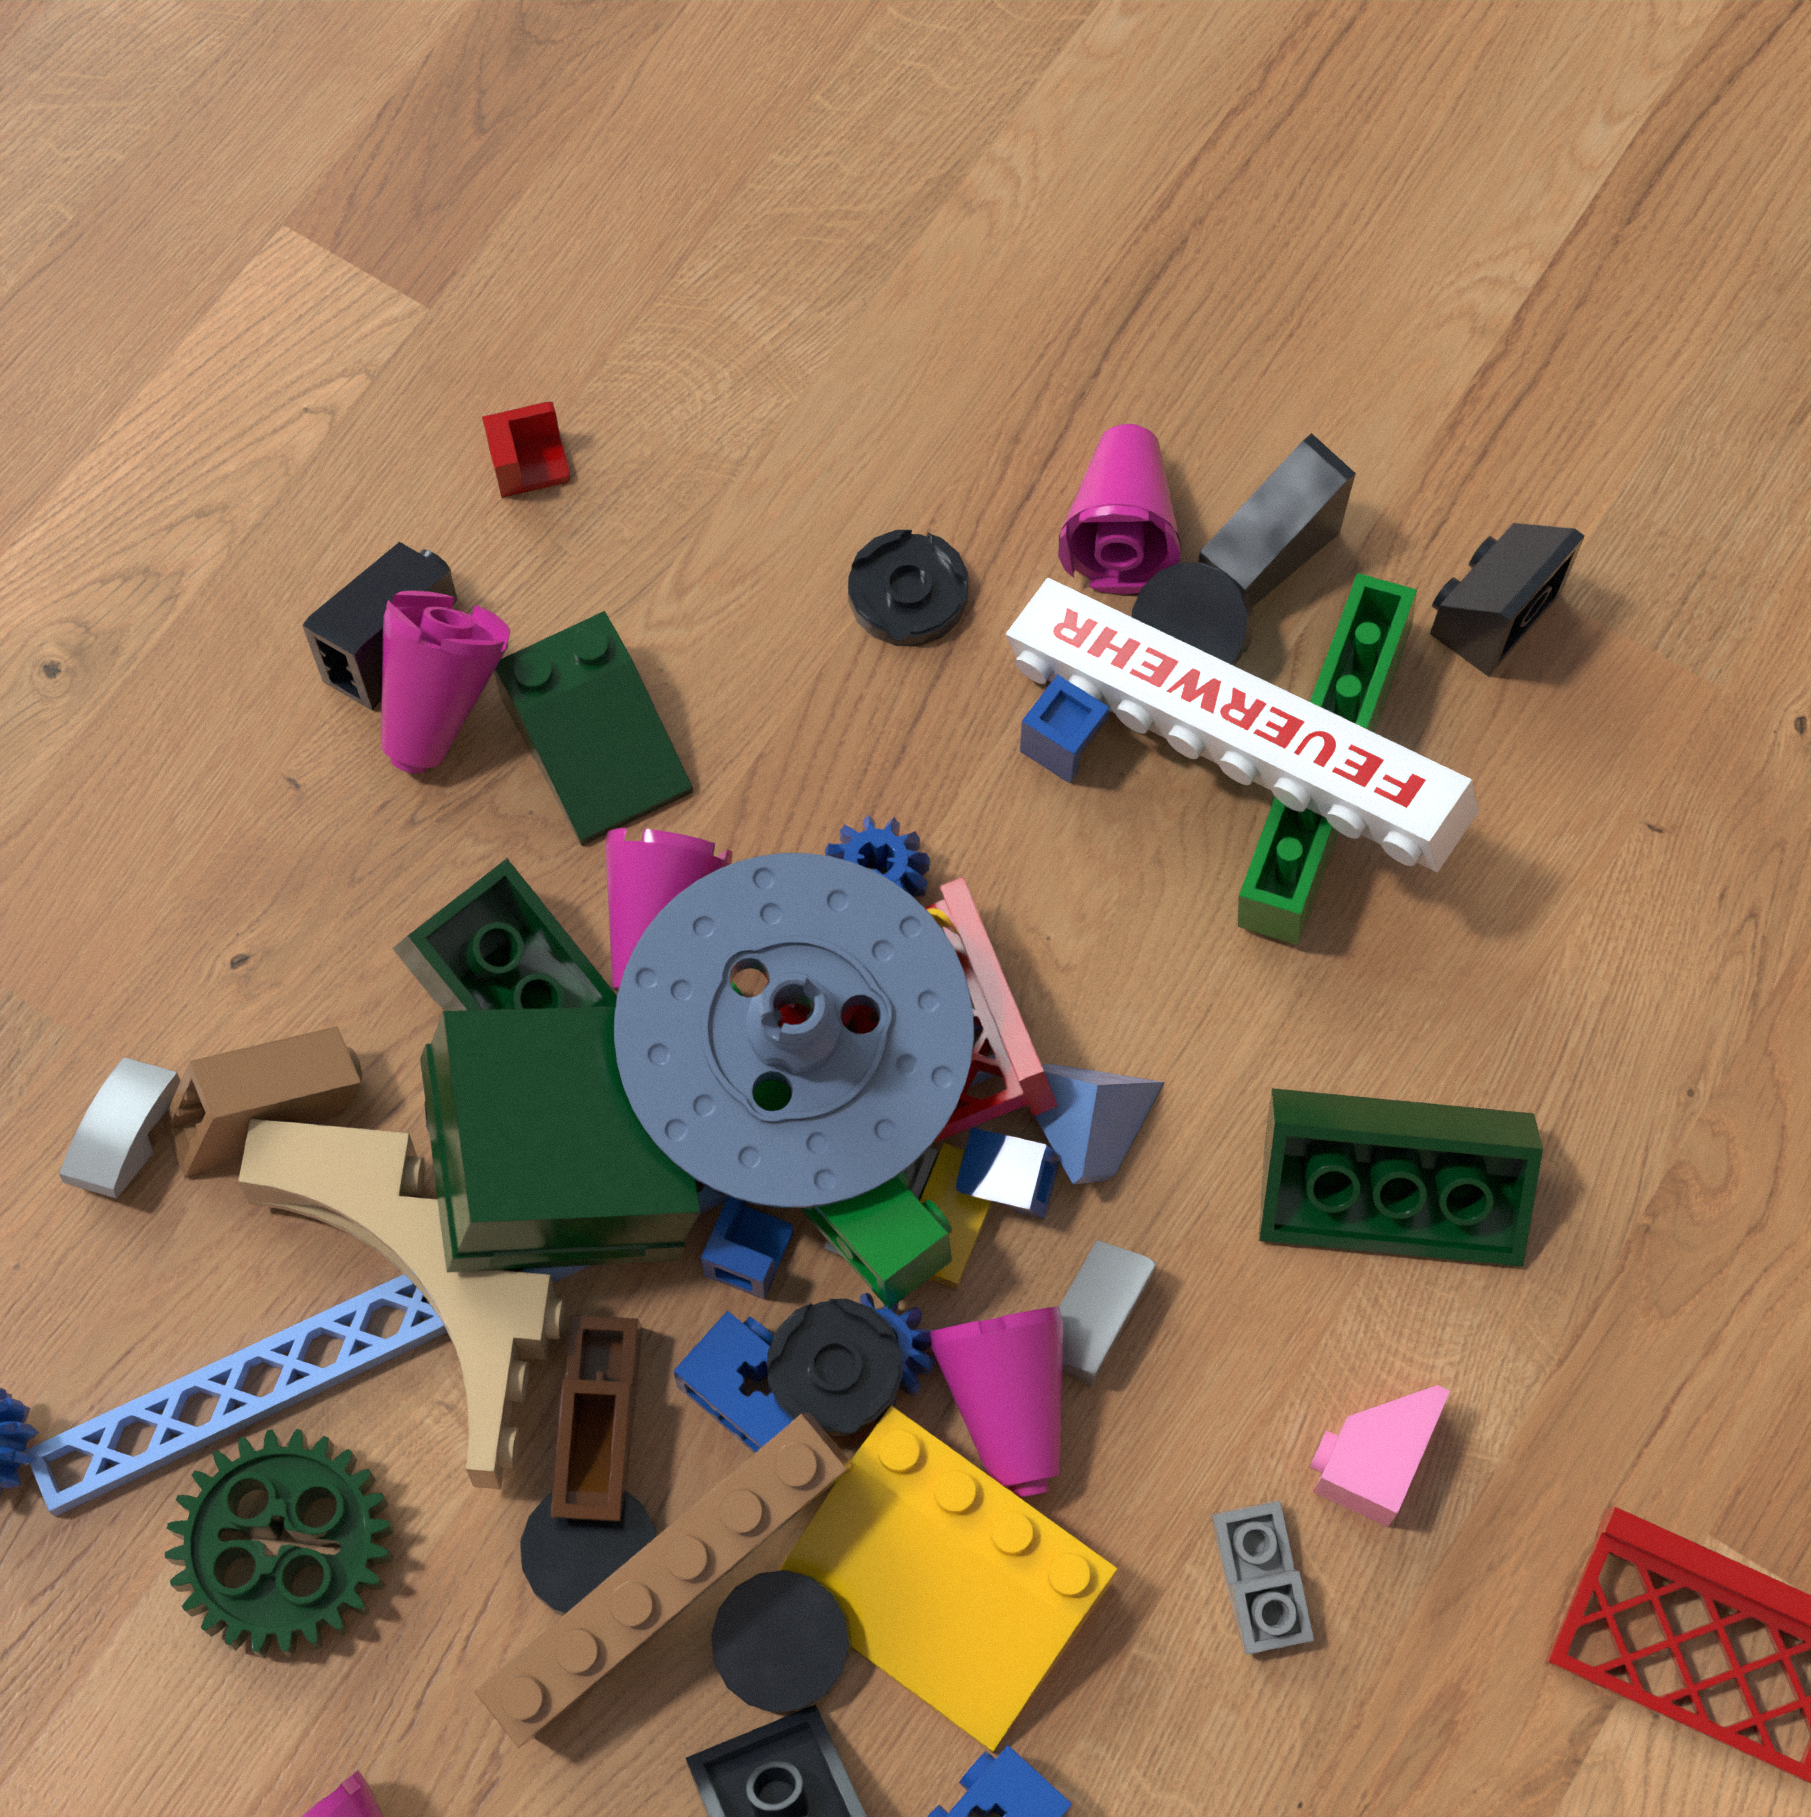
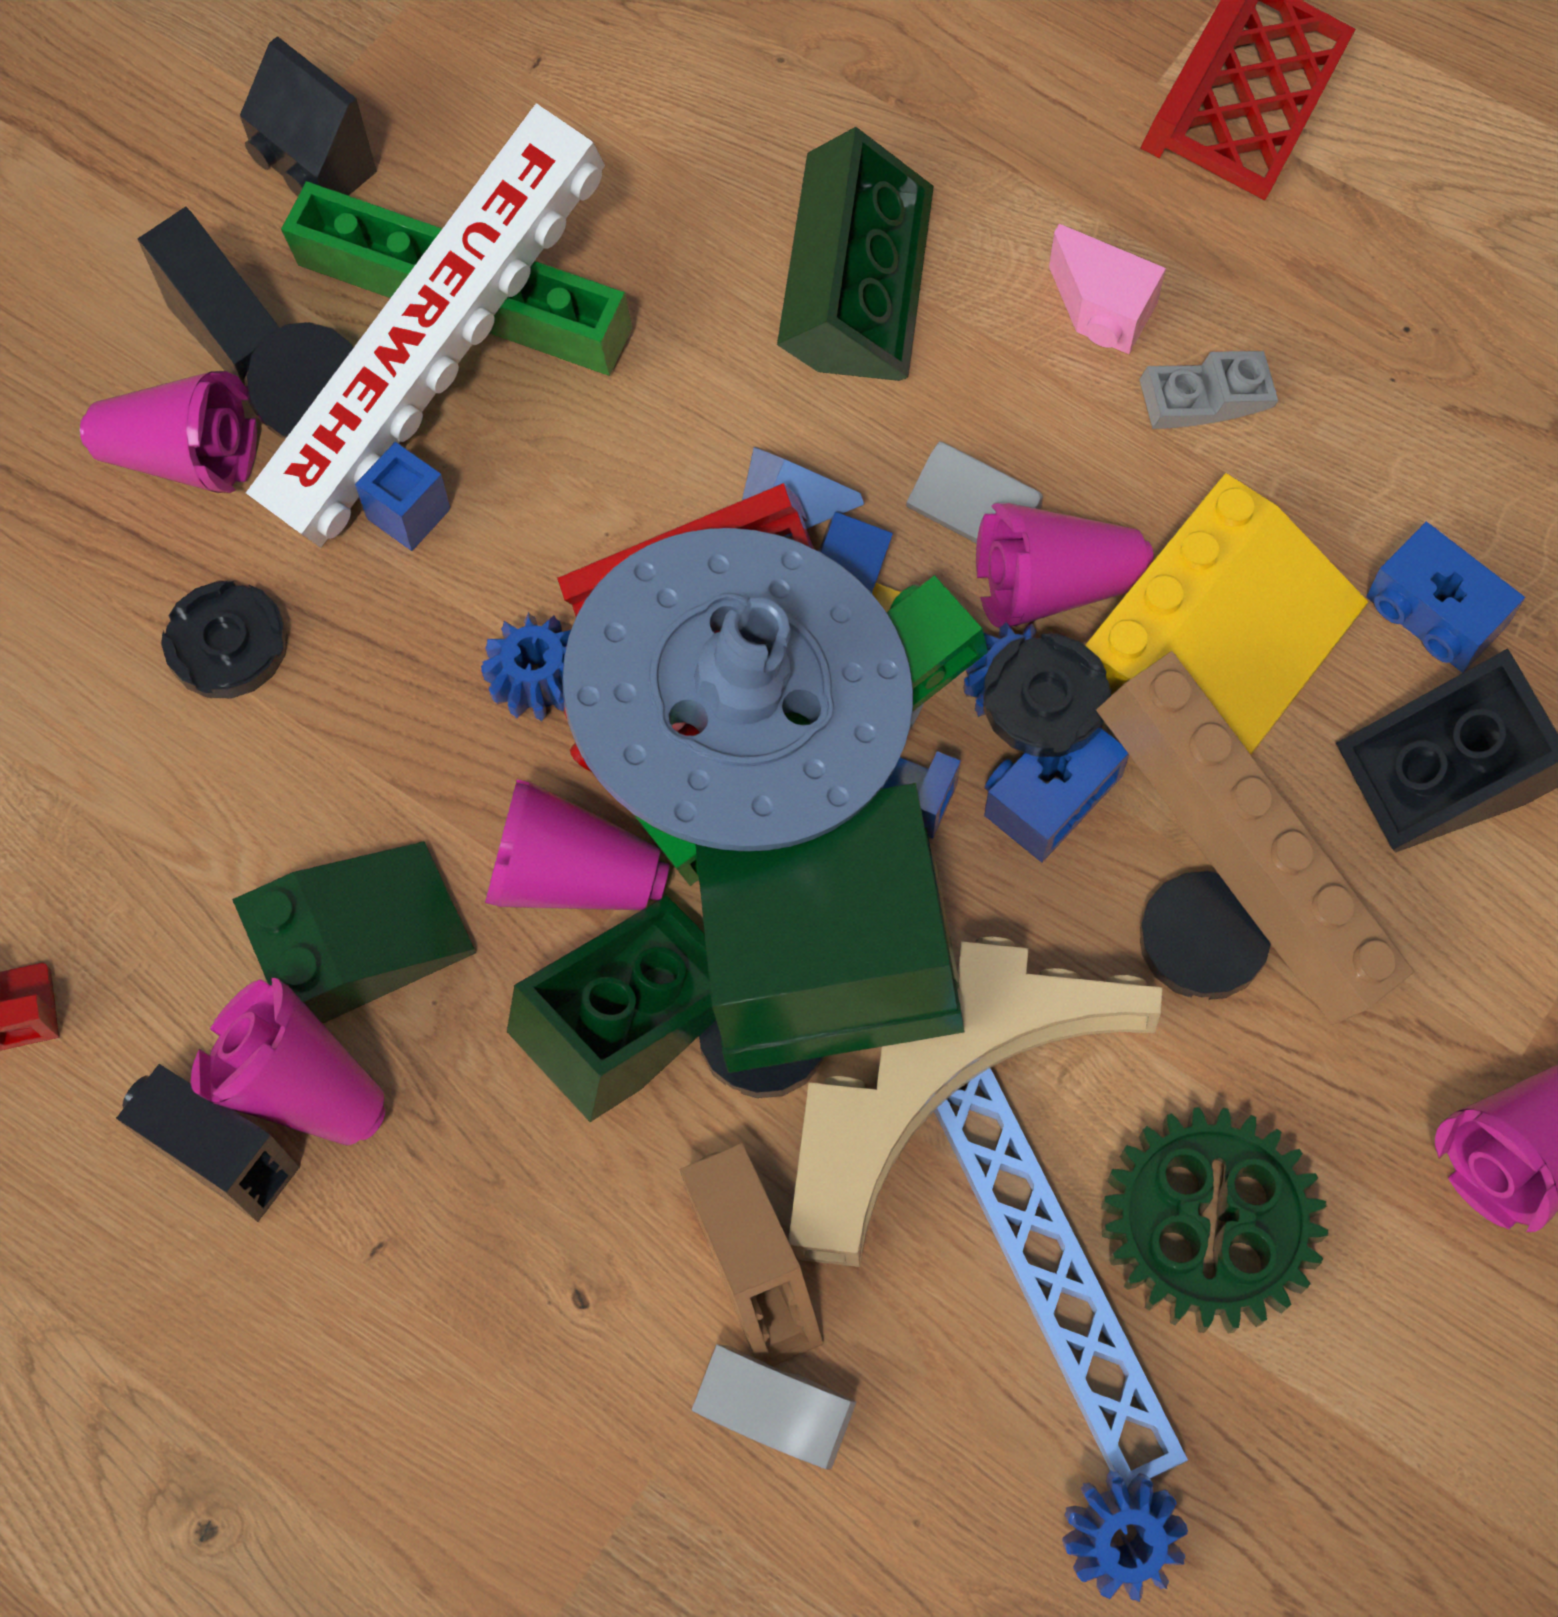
camera: 85 degrees left, 0 degrees up
(596, 1418) = (1089, 918): reddish brown slope -> none
(781, 1641) = (1298, 755): black tile -> none

